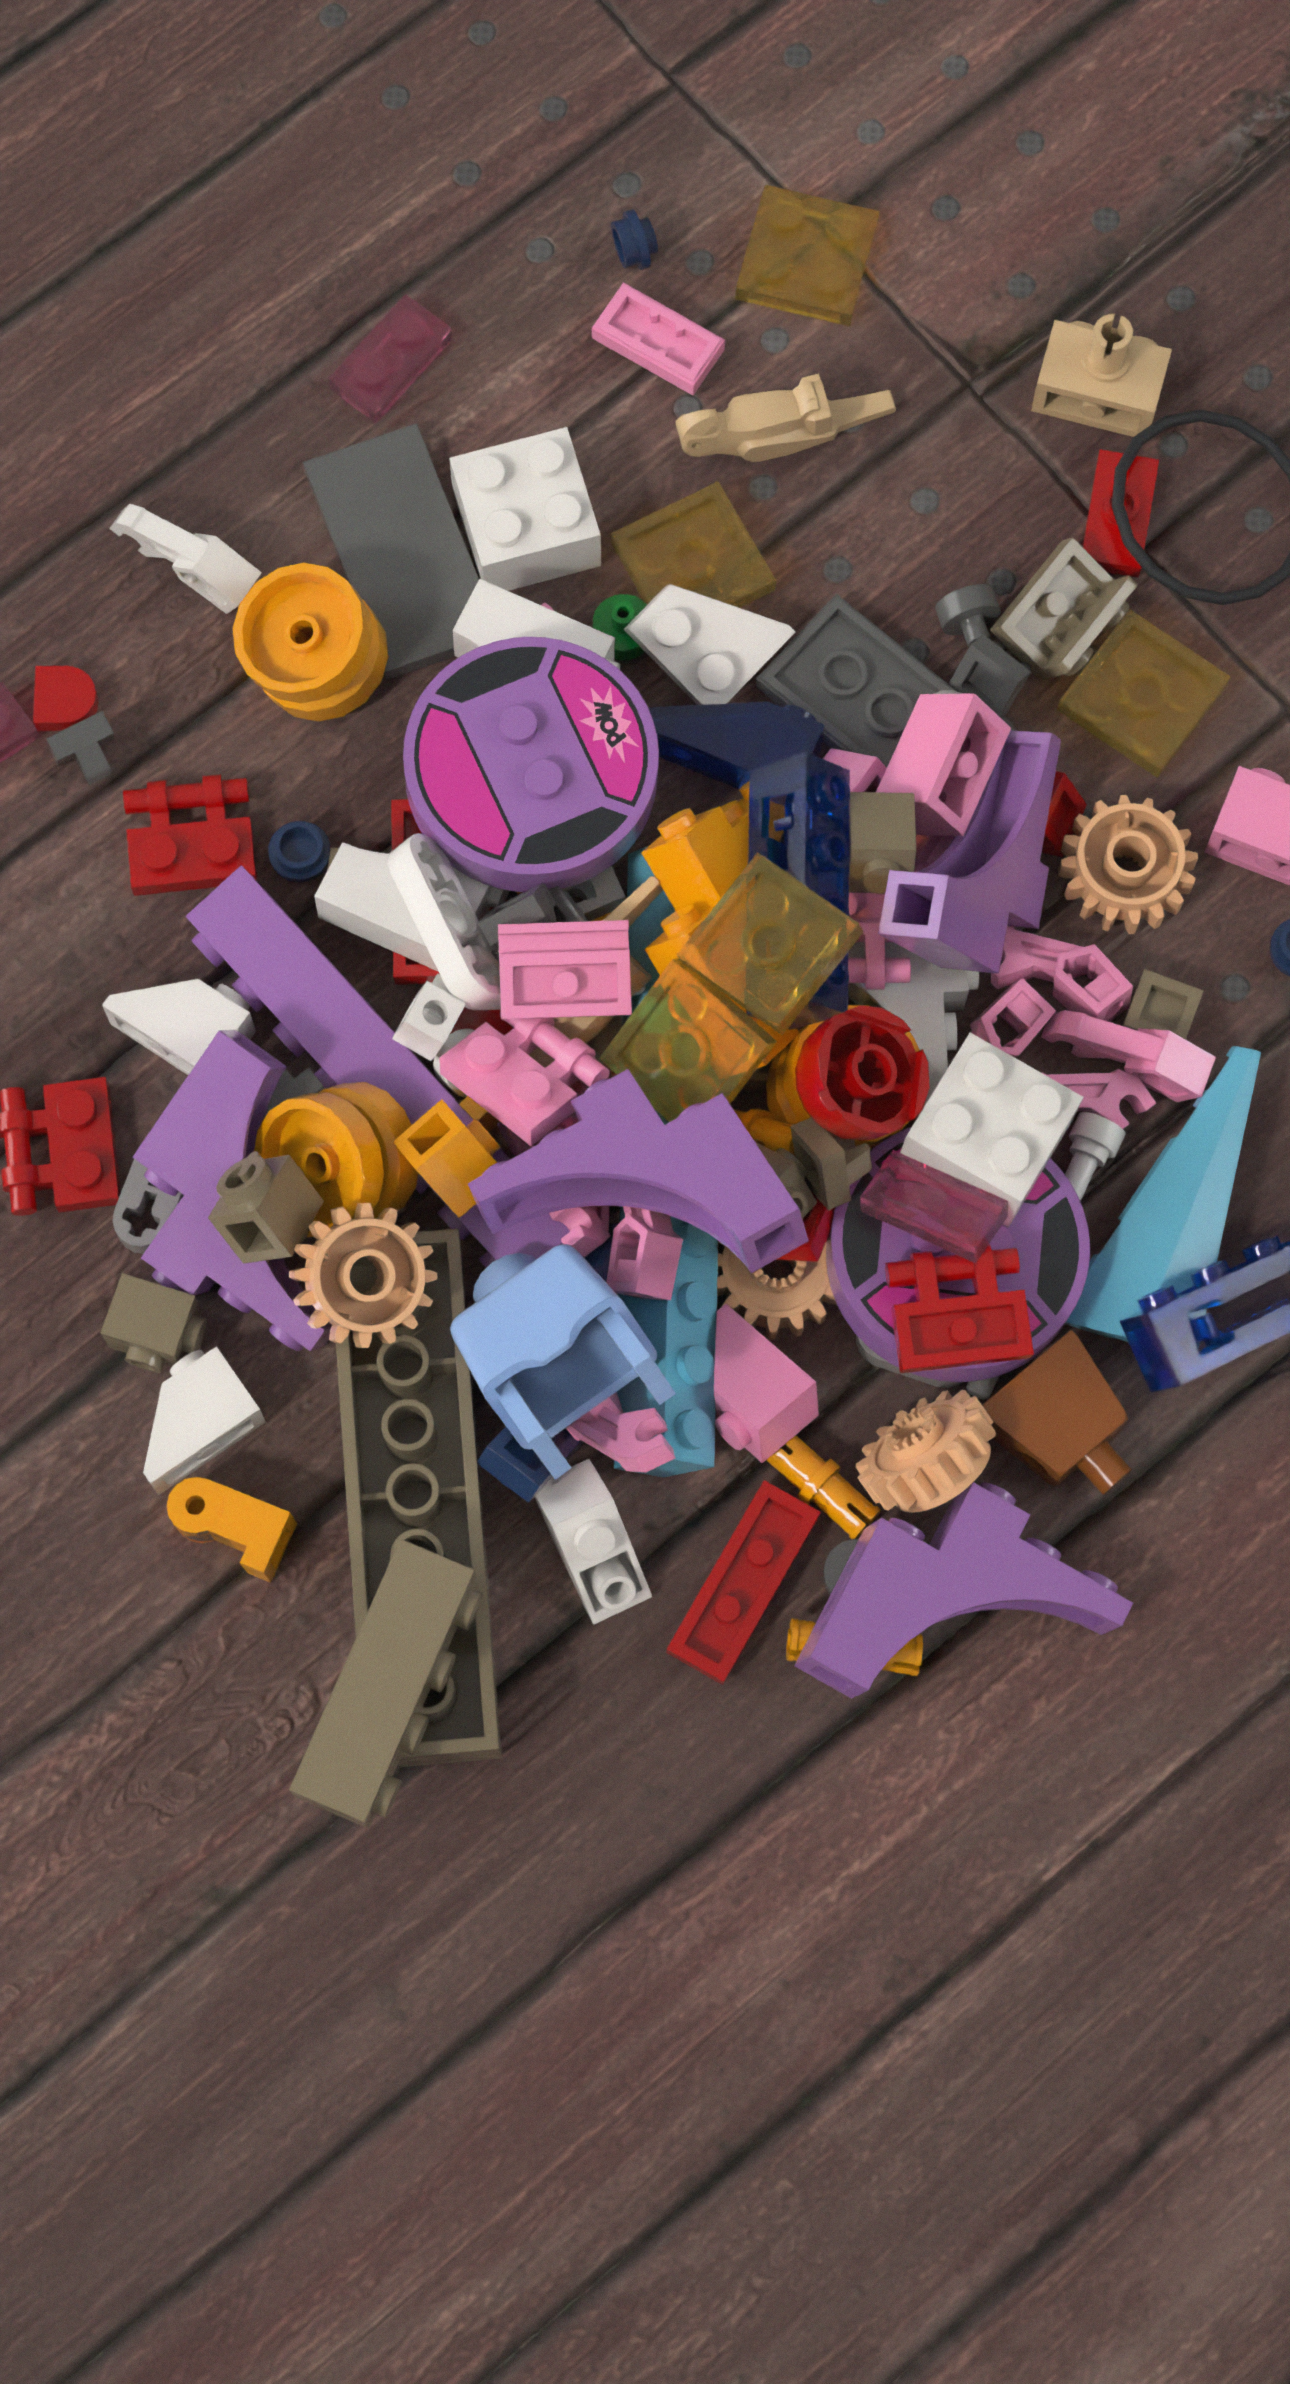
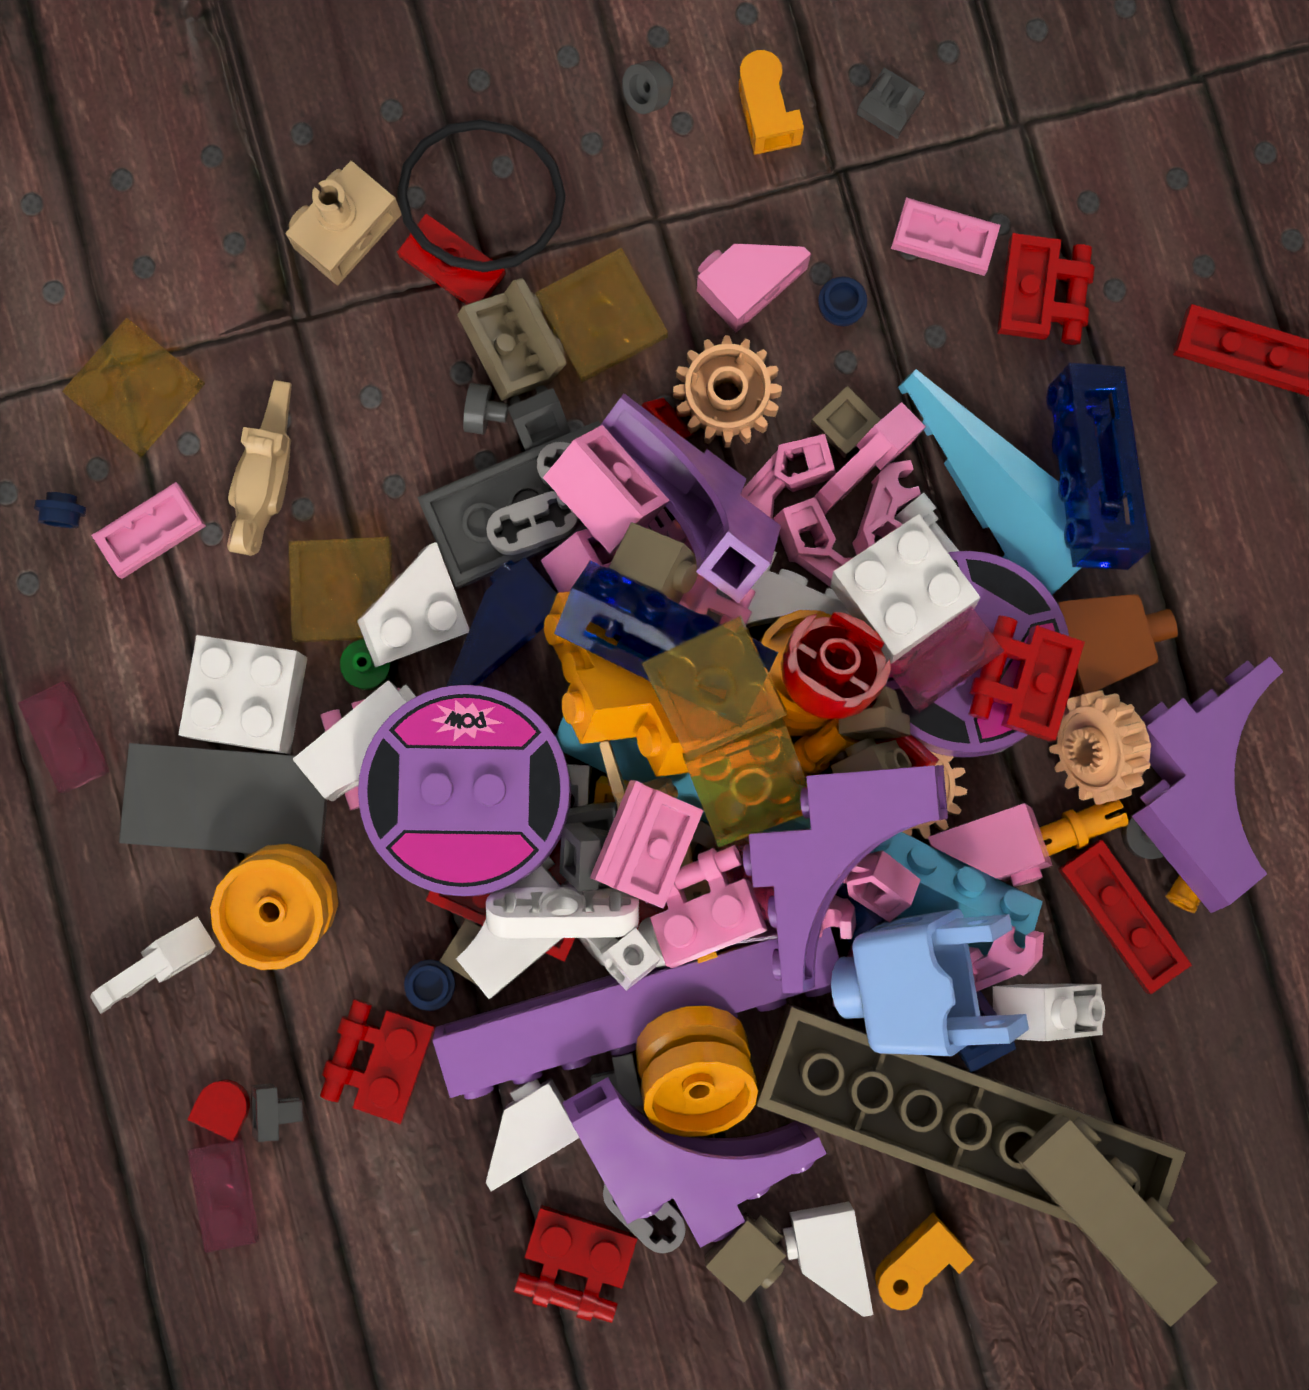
camera: 65 degrees left, 10 degrees up
(264, 1207) = (720, 1146): dark tan brick -> none
(328, 1269) = (781, 1104): light nougat gear -> none
(448, 1154) = (742, 991): light orange brick -> none
(872, 704) = (536, 535): none -> light grey beam

